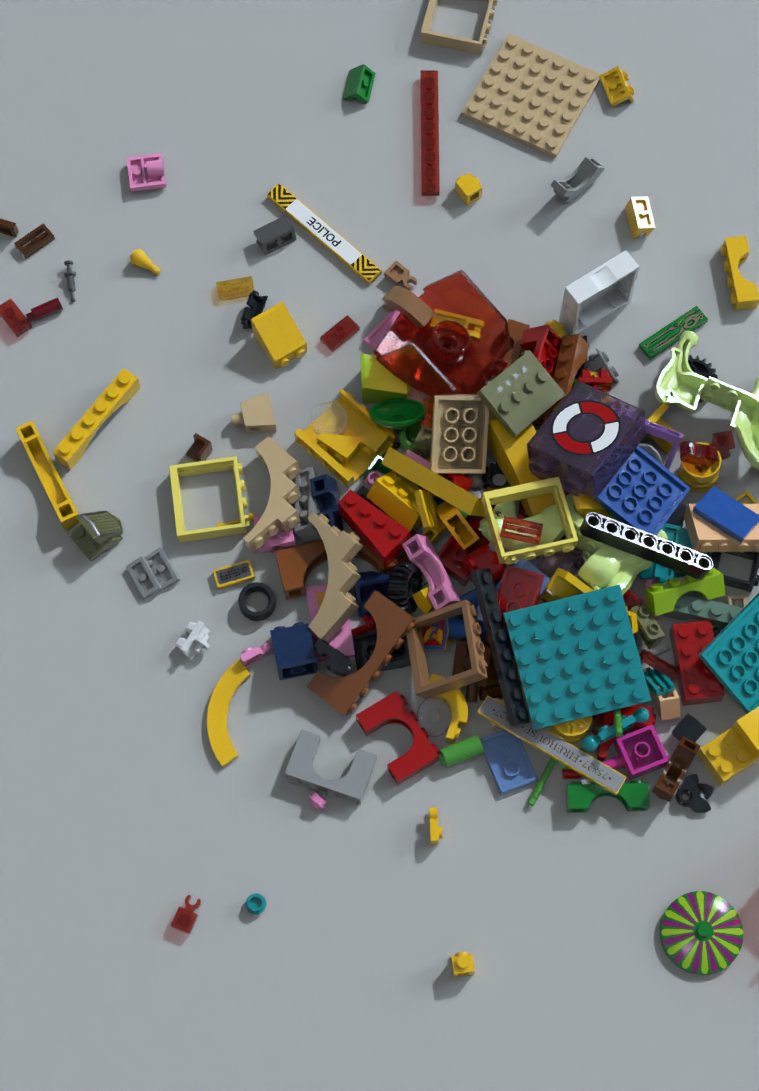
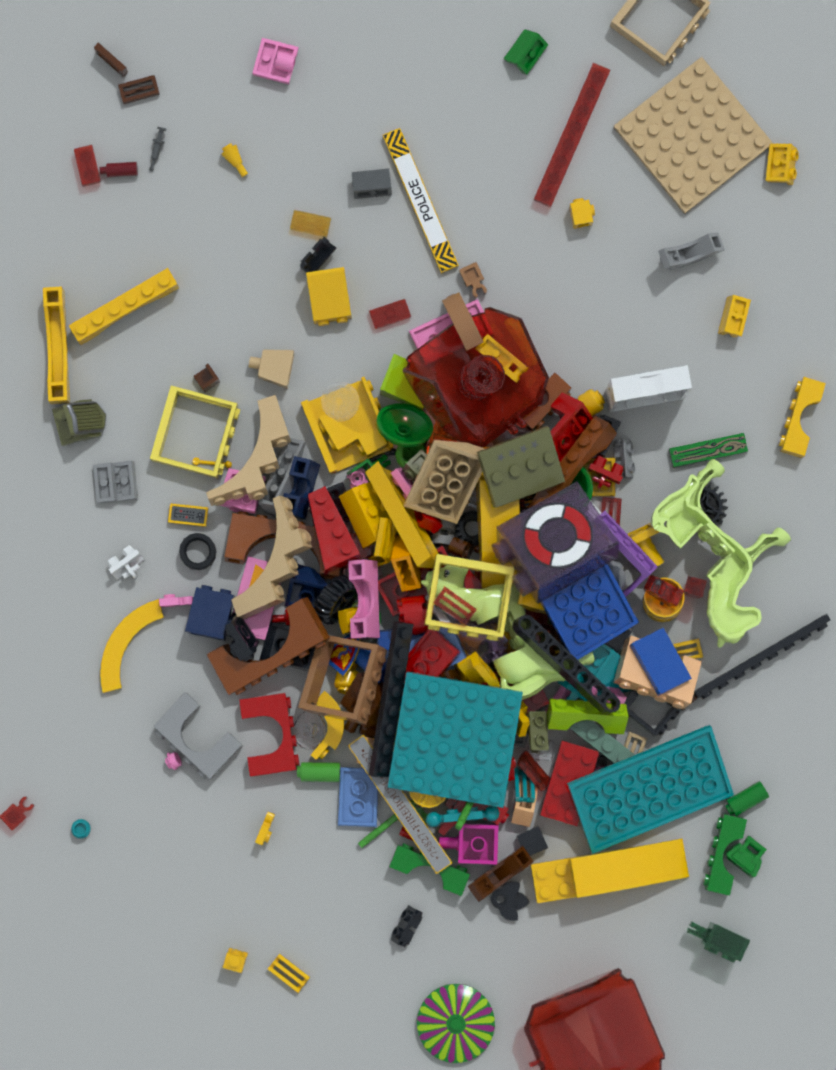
camera: 20 degrees right, 15 degrees up
(445, 658) = (343, 683): none -> yellow head
(520, 955) = (285, 980): none -> yellow tile
(610, 851) = (409, 918): none -> black hinge

